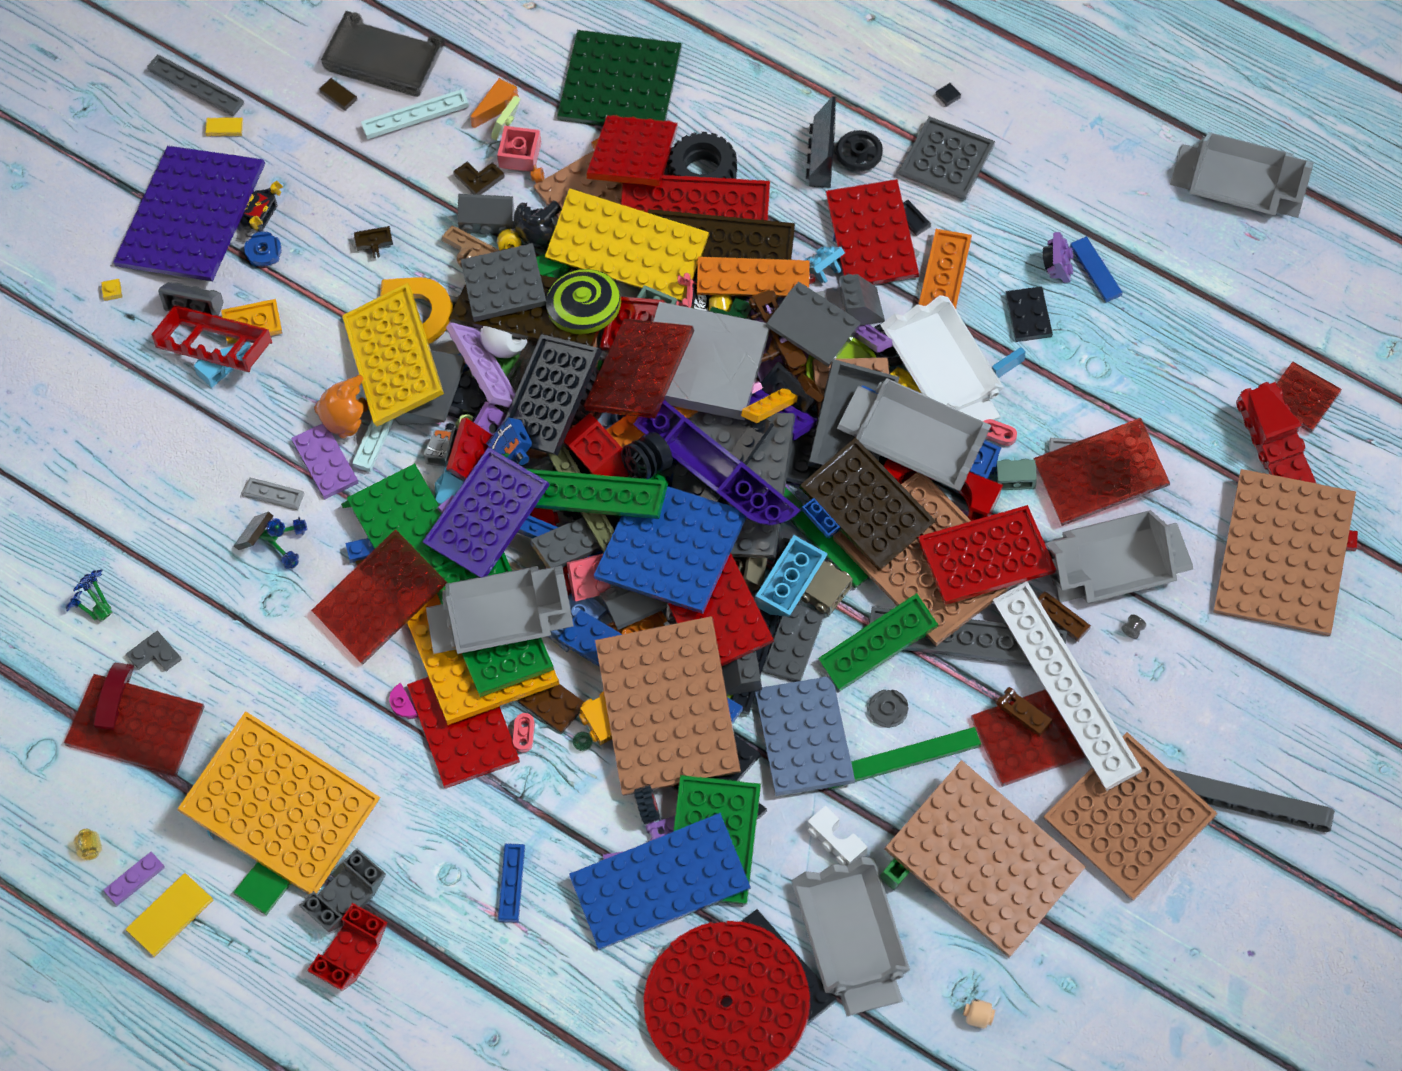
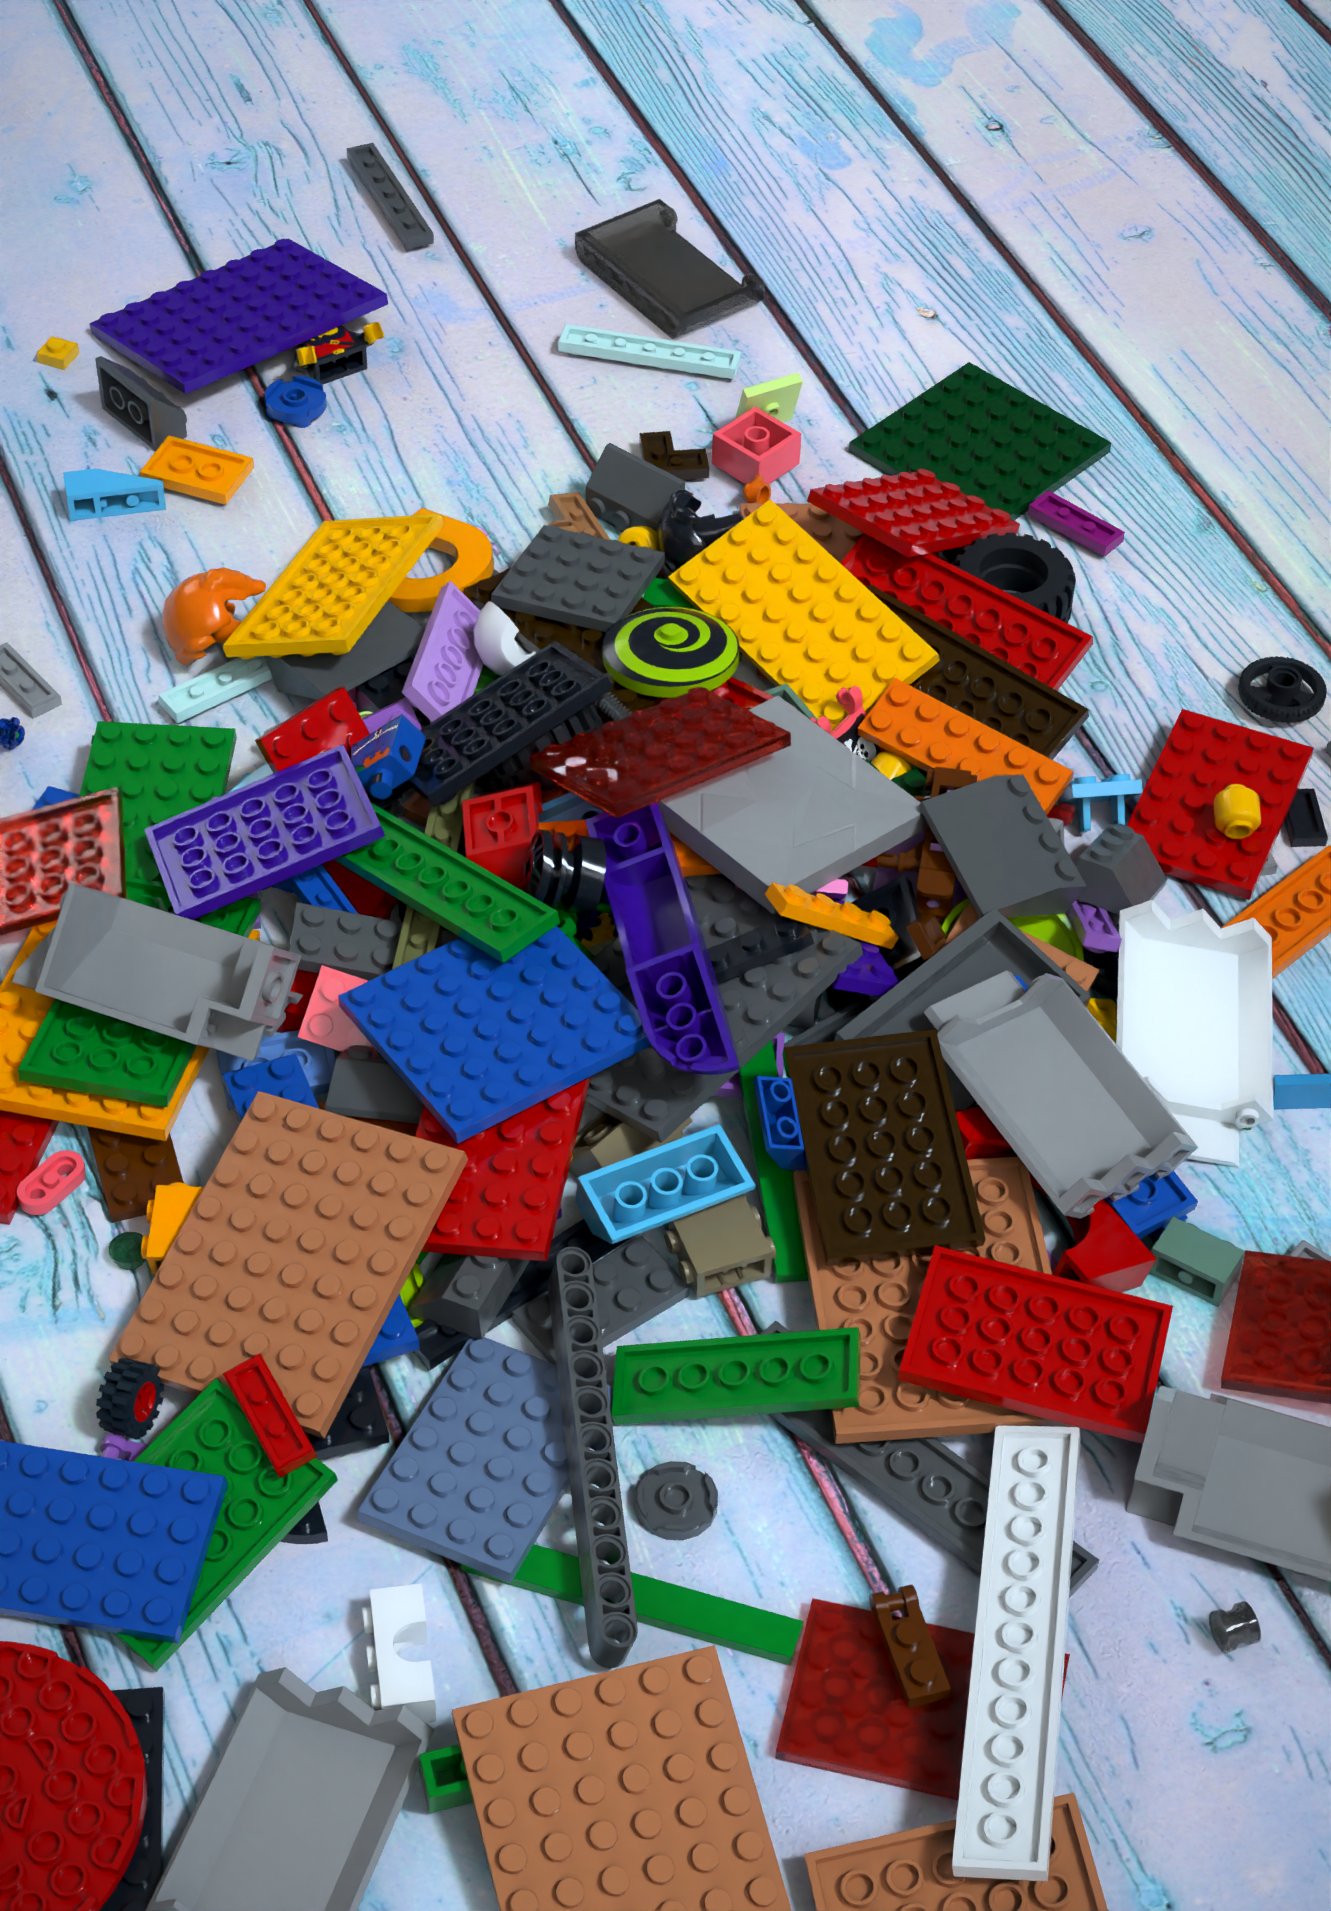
camera: 30 degrees right, 15 degrees down
(202, 321) = (165, 472): red window -> none
(224, 126) = (382, 254): yellow tile -> none
(324, 461) = (127, 676): medium lavender plate -> none
(338, 94) = (567, 287): dark brown tile -> none
(373, 239) = (454, 458): dark brown plate -> none
(494, 102) = (731, 388): orange slope -> none
(699, 104) = (1076, 523): none -> magenta plate
(717, 776) = (270, 1415): none -> red tile
(822, 146) = (1224, 656): black slope -> none
(850, 718) = (573, 1320): none -> dark grey beam
(891, 237) = (1237, 811): none -> yellow head
(999, 431) = (1219, 1187): coral plate -> none
(1064, 617) = (1110, 1533): reddish brown plate -> none

